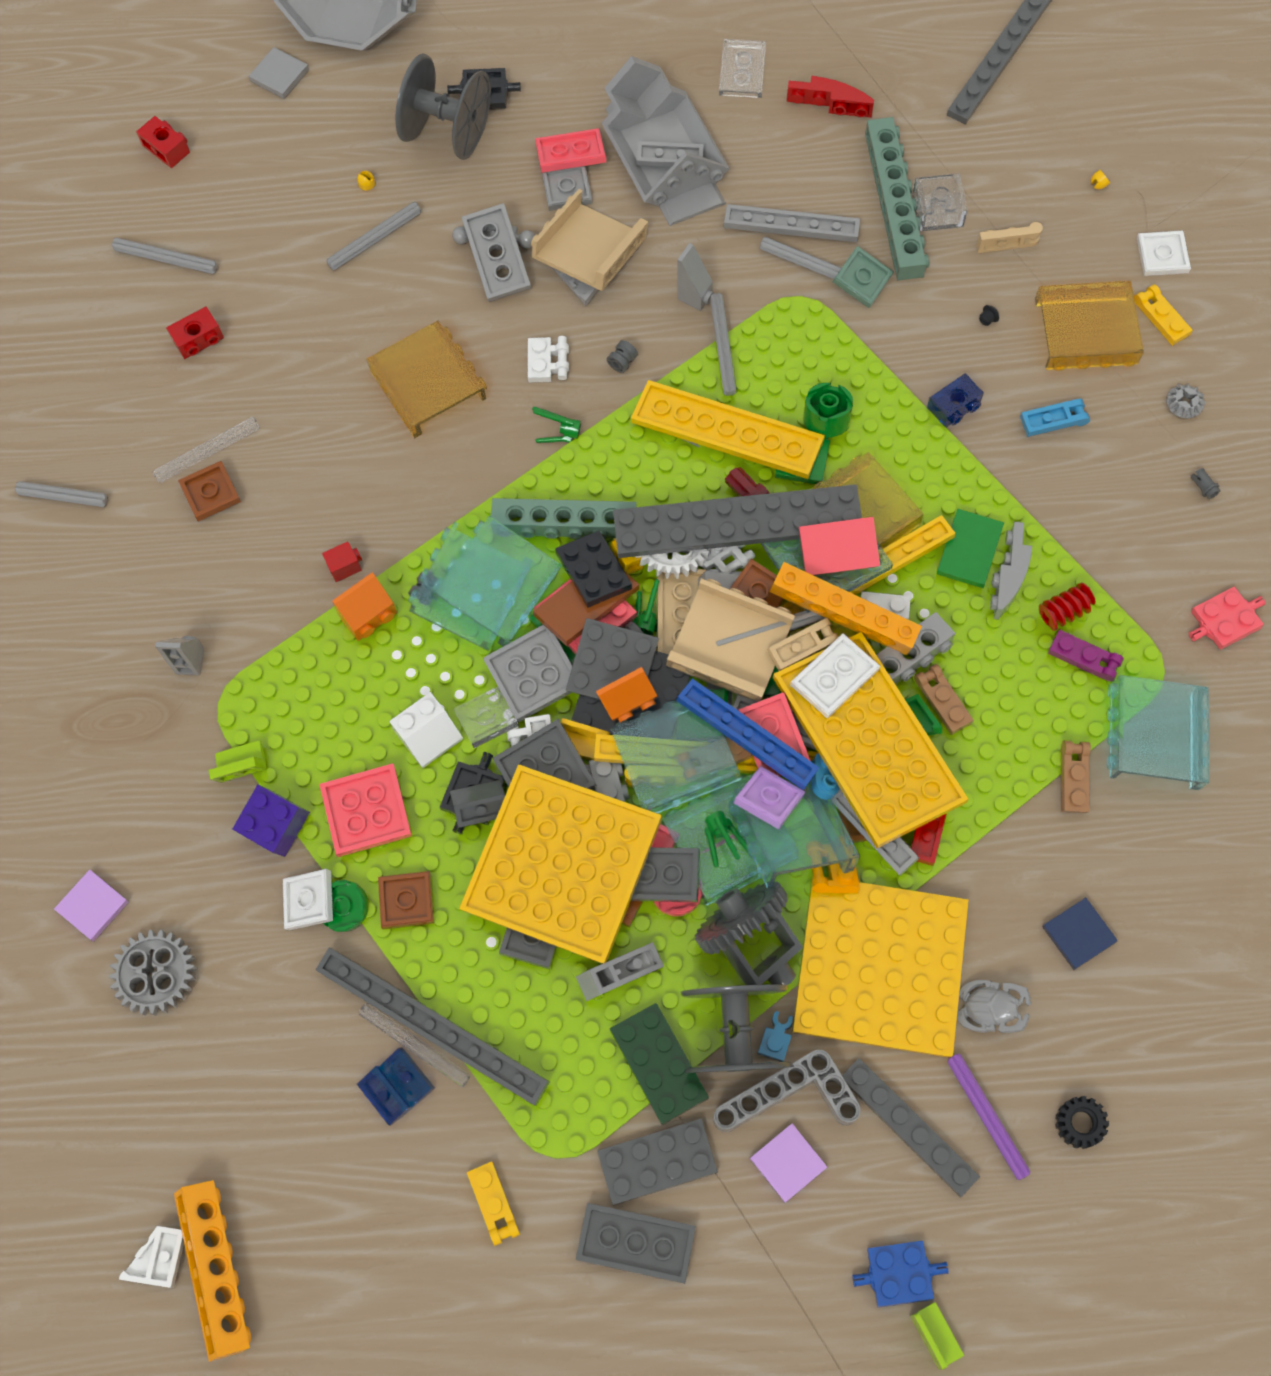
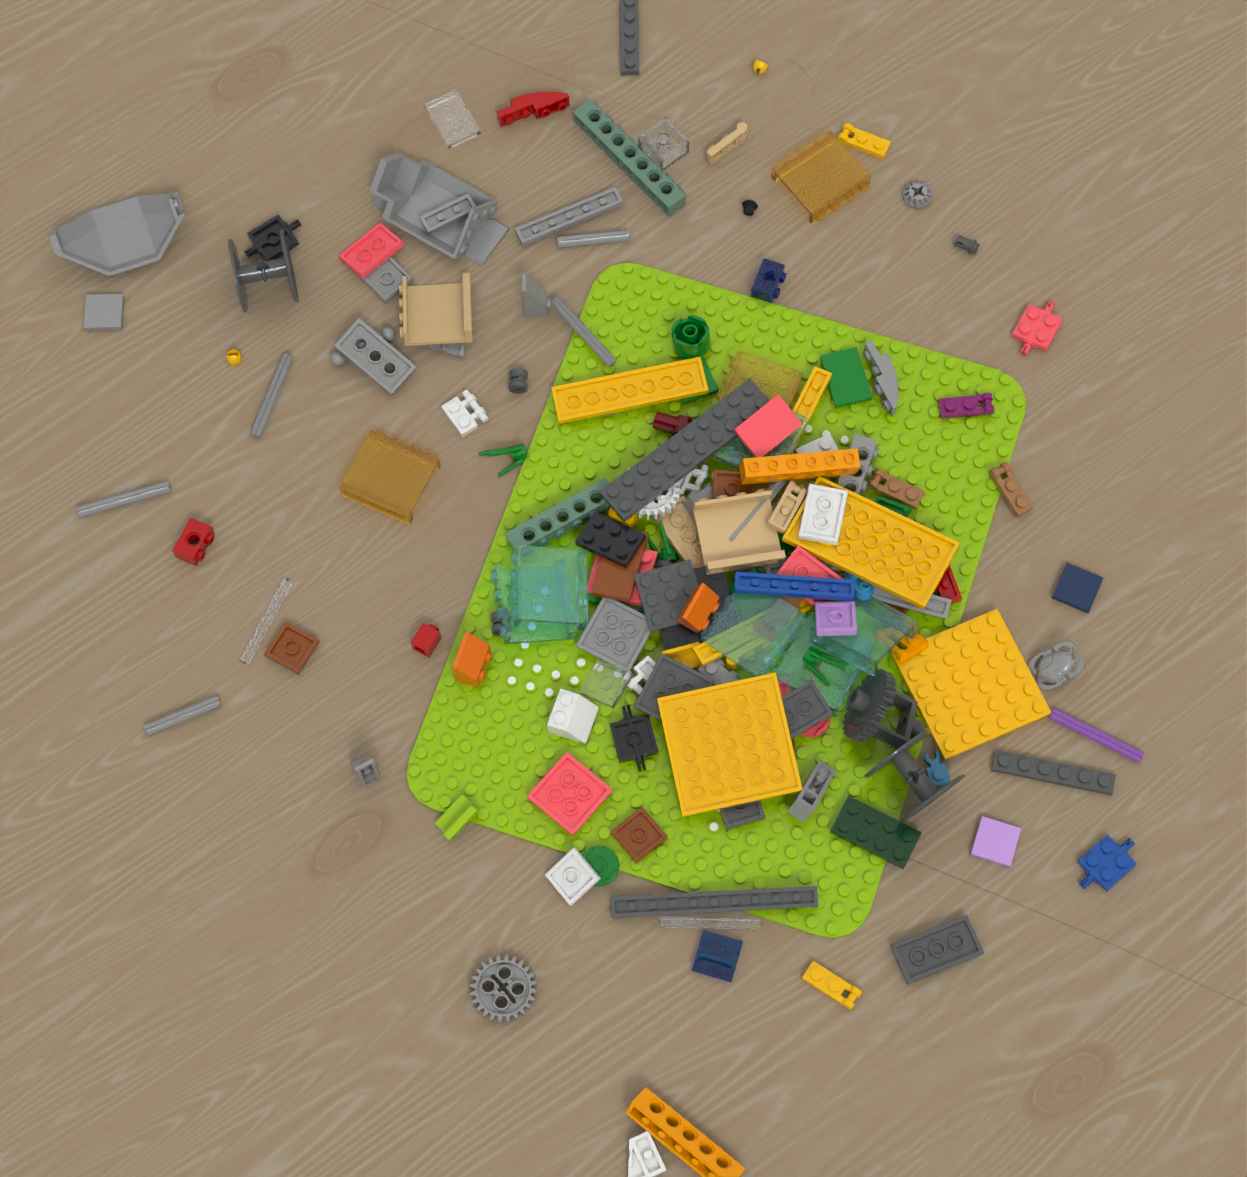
camera: 35 degrees left, 0 degrees up
(91, 905) = (425, 975): lavender tile -> none
(163, 141) = (65, 420): red brick -> none
(271, 820) = (511, 840): dark purple brick -> none
(477, 803) = (645, 740): dark grey panel -> none
(657, 1162) = (915, 893): dark grey plate -> none
(787, 1089) = (964, 796): light grey beam -> none
(863, 276) = (645, 228): sand green tile -> none
(937, 1336) = (1152, 885): lime panel -> none
(1054, 417) = (840, 255): dark azure plate -> none
(1067, 603) = (934, 380): red piece -> none
(1093, 1110) = (1148, 713): black tyre -> none
(1159, 730) = (1043, 427): clear light blue panel -> none
(1163, 253) = (836, 96): white tile -> none

